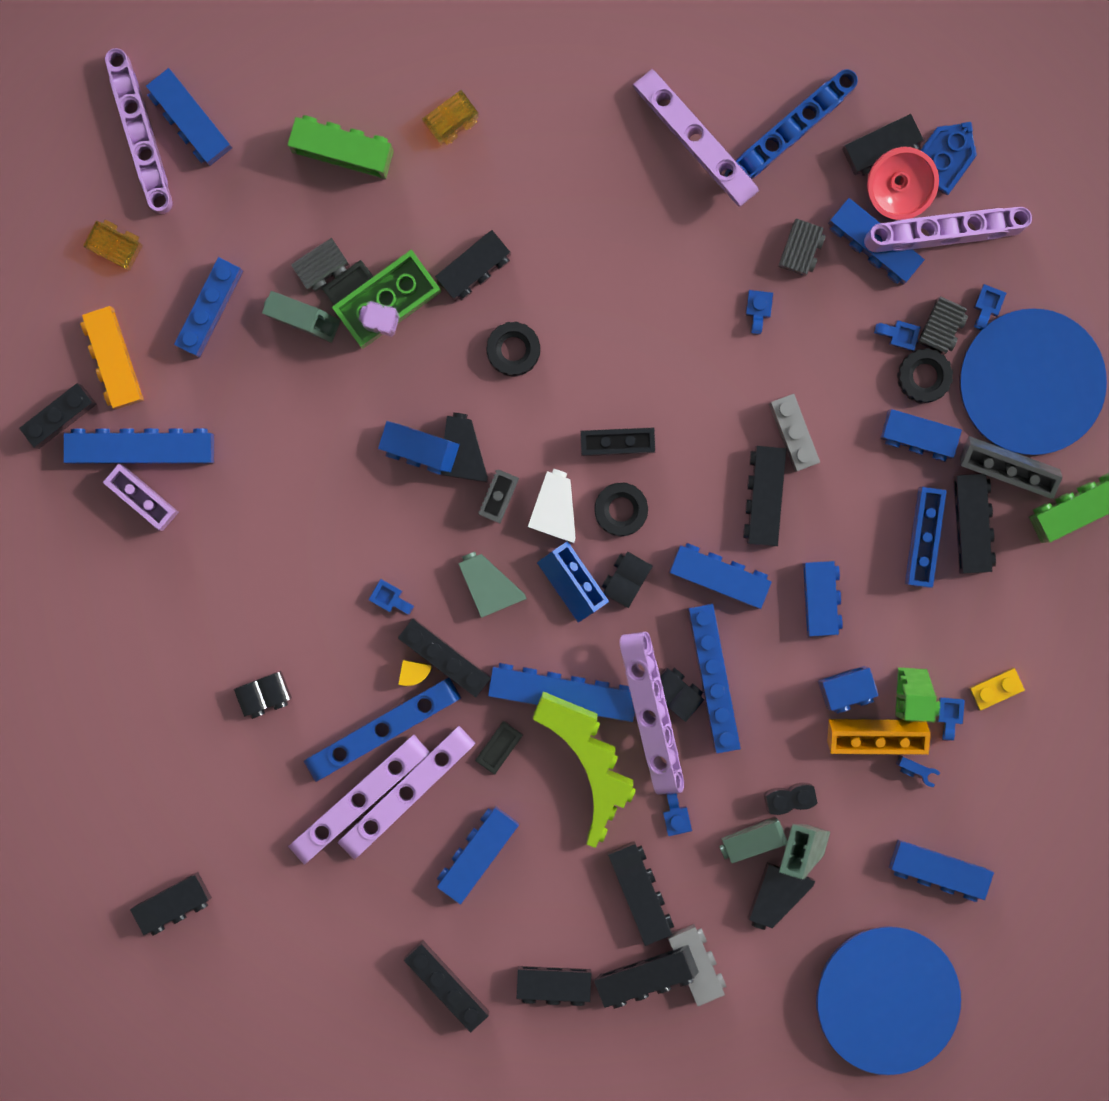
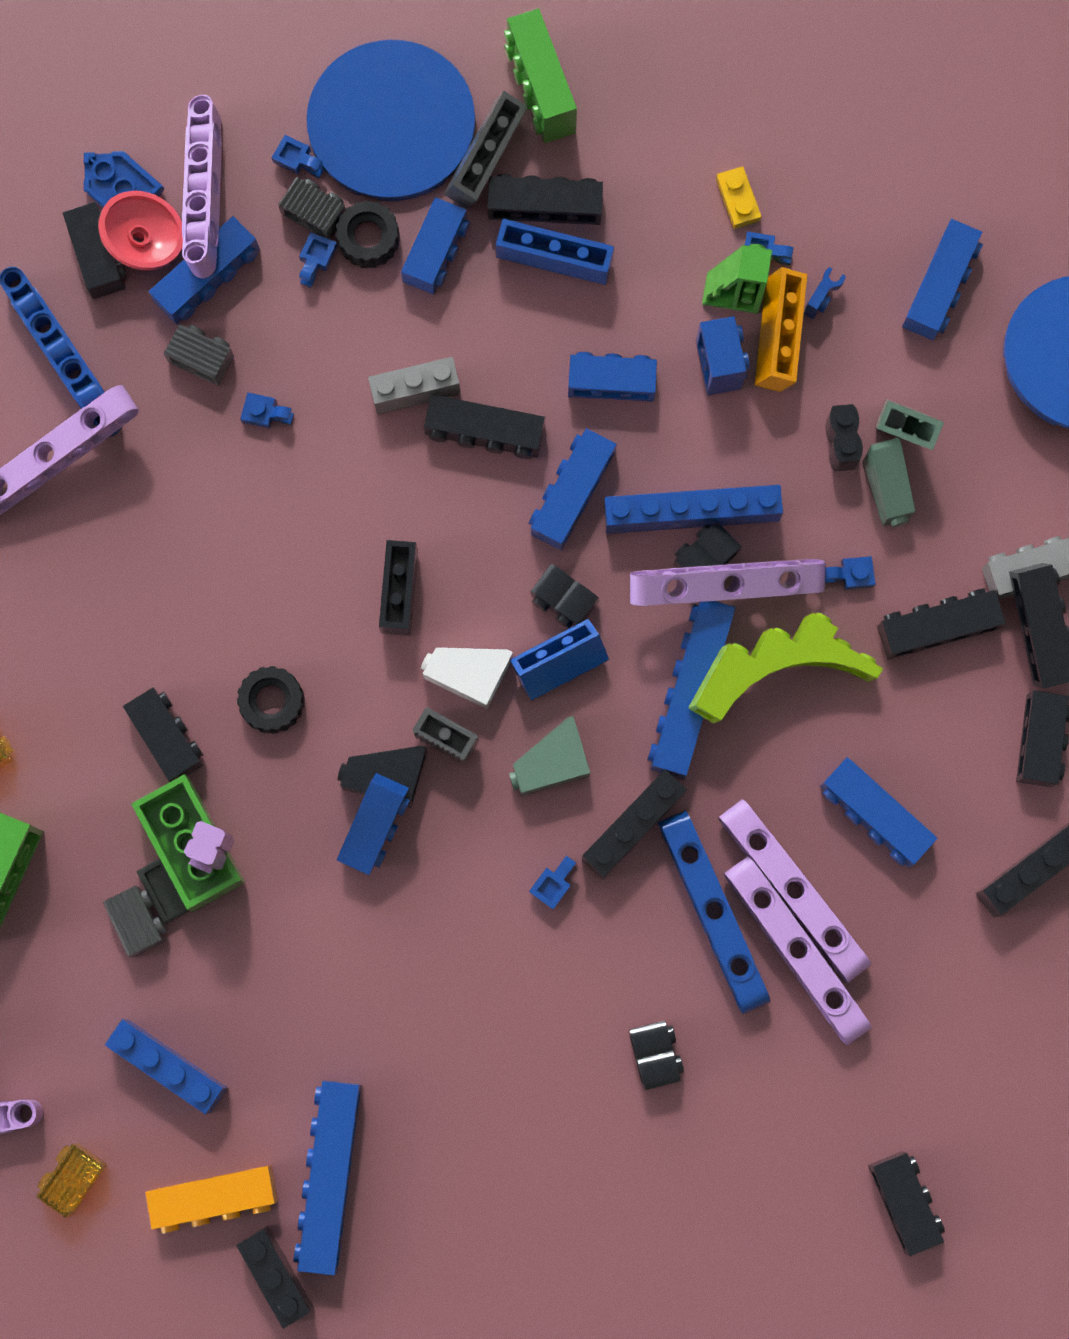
camera: 80 degrees left, 10 degrees down
(140, 497) = (390, 1180): lavender brick -> none
(301, 316) = (193, 952): sand green slope -> none
(413, 672) = (648, 864): yellow brick -> none
(499, 747) = (749, 773): pearl dark grey tile -> none
(627, 491) = (479, 617): black tyre -> none
(776, 896) = (957, 467): black slope -> none

